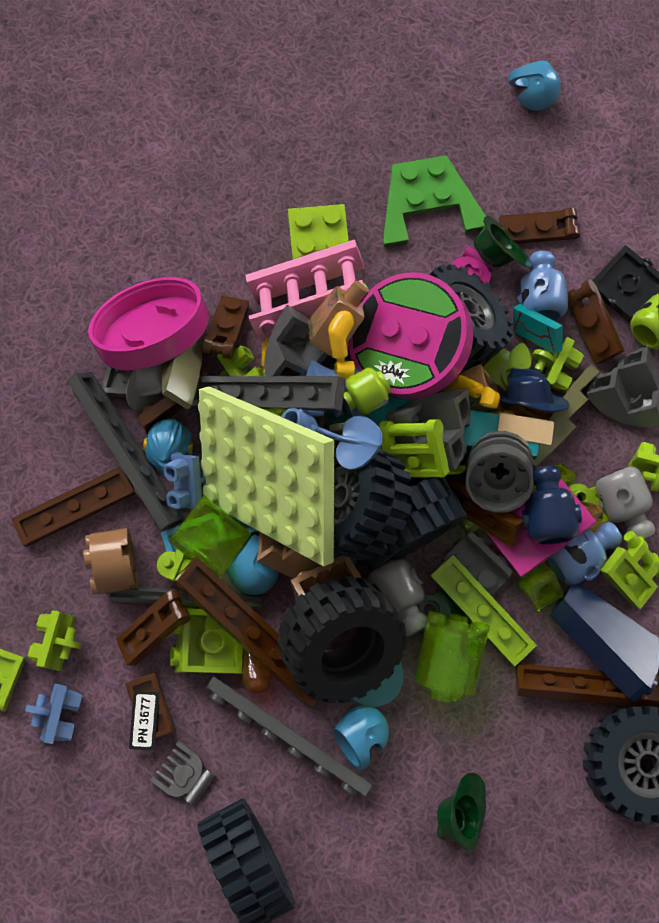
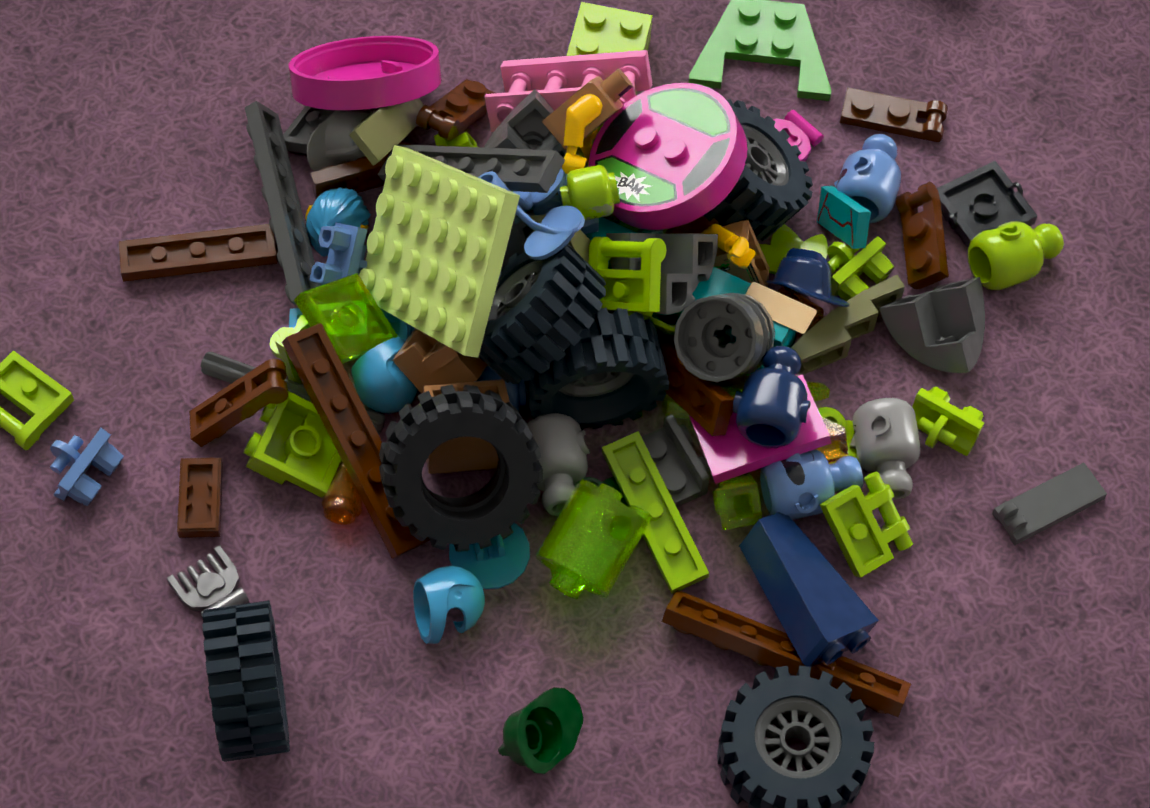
camera: 20 degrees right, 15 degrees down
(56, 642) = (117, 389): lime hips -> none
(111, 561) = (218, 316): medium nougat brick -> none
(143, 720) = (186, 504): sticker -> none
(298, 745) = (364, 592): dark grey plate -> none
(497, 247) = (827, 113): dark green piece -> none

